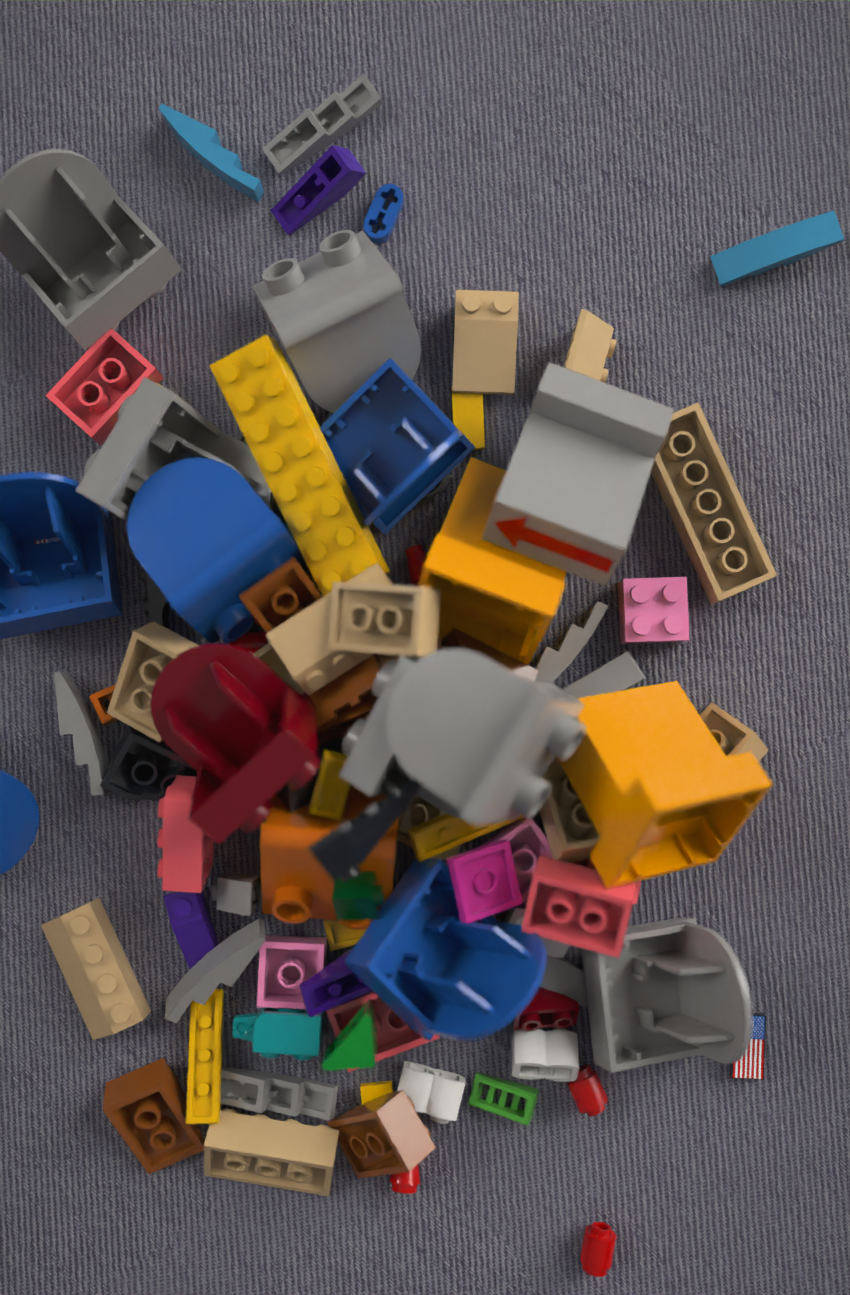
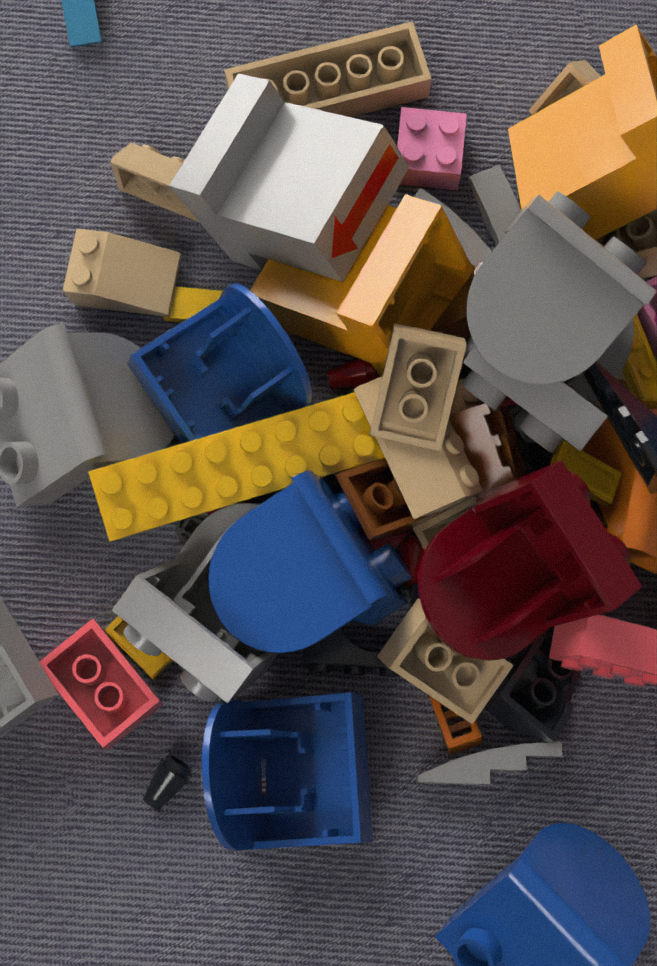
camera: 90 degrees left, 10 degrees down
(33, 457) = (167, 781): none -> black cone

